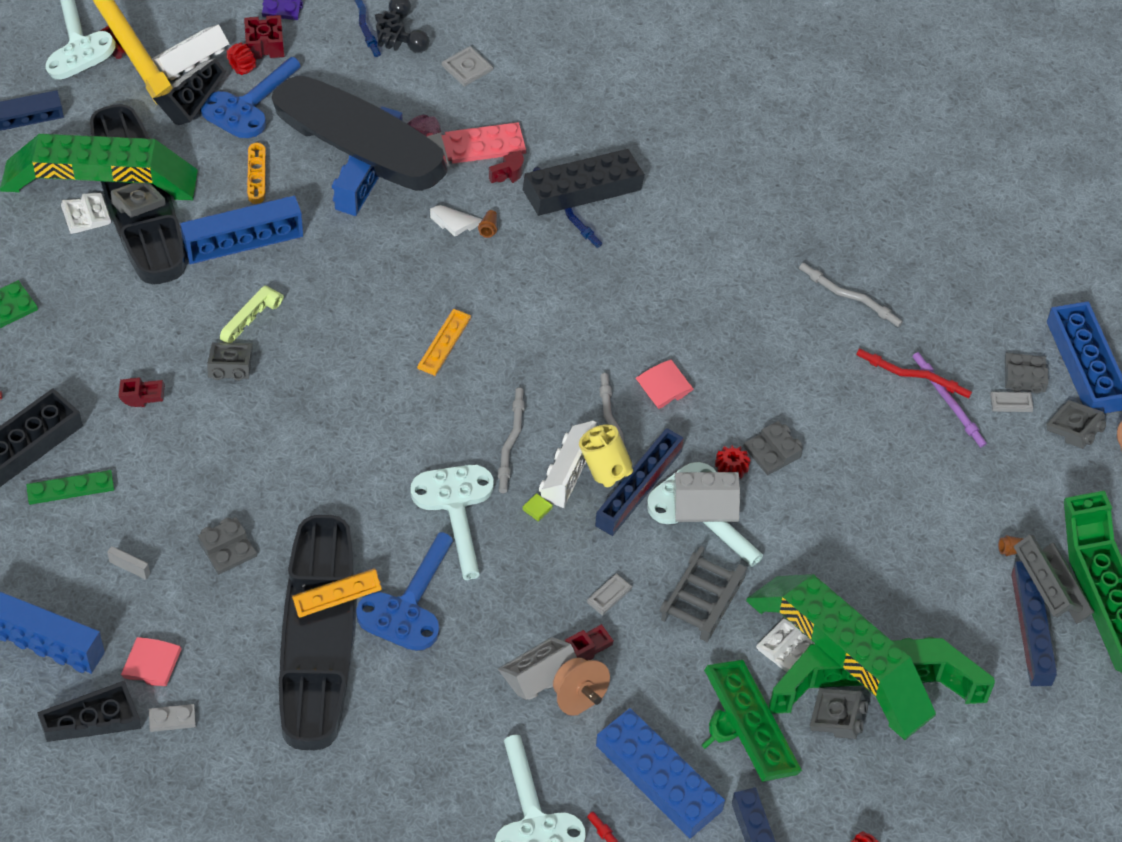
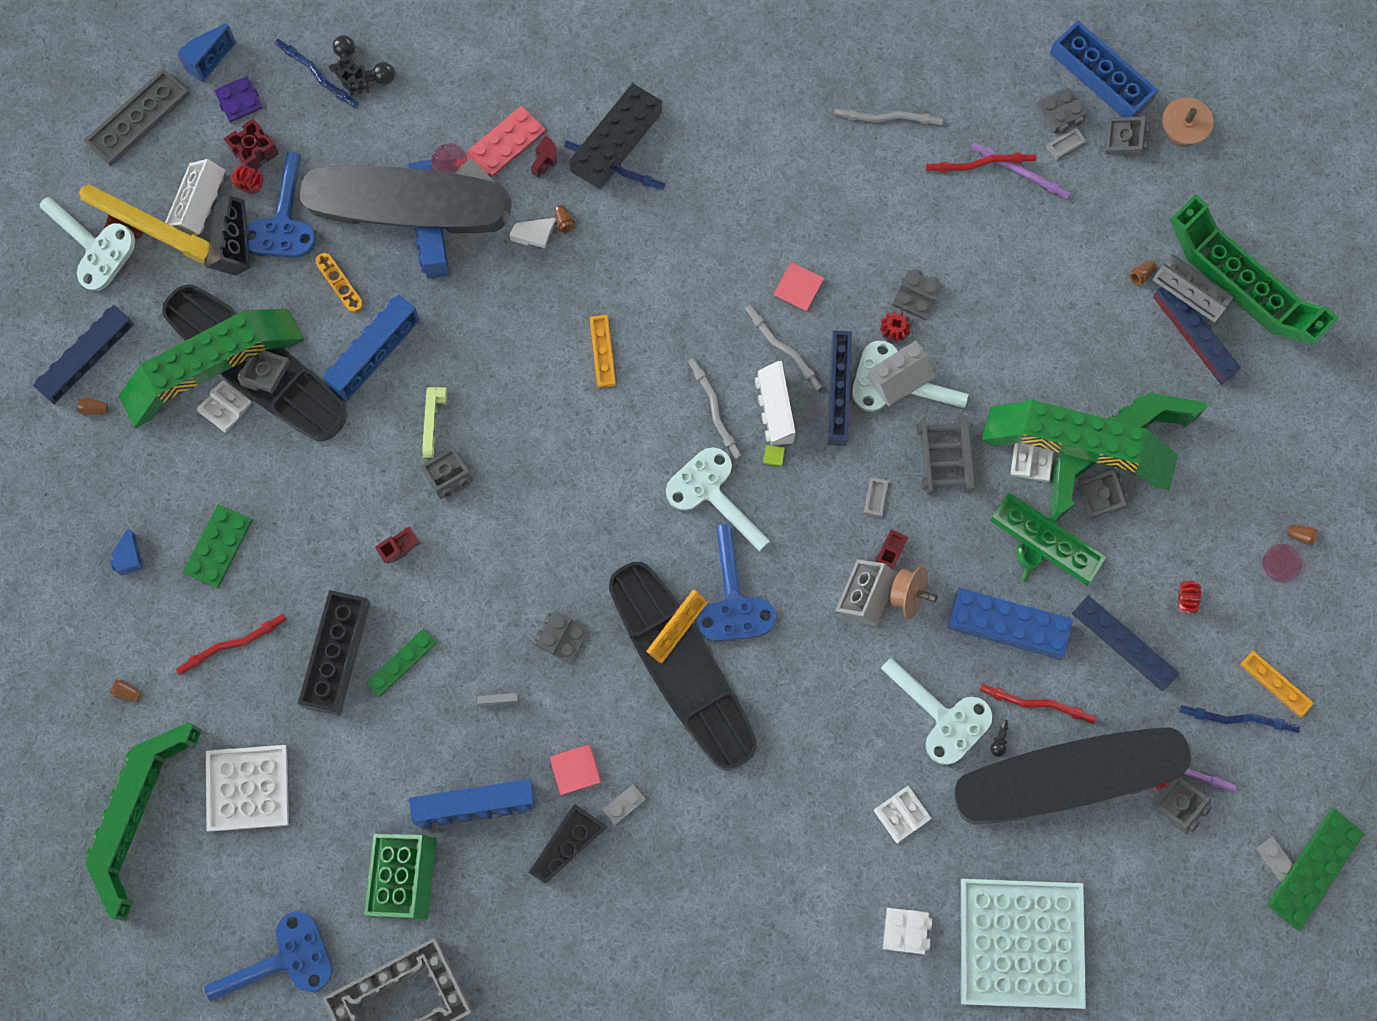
camera: 30 degrees left, 20 degrees up
(467, 66) = (439, 73): light grey tile -> none
(605, 454) = (807, 386): light yellow cylinder -> none

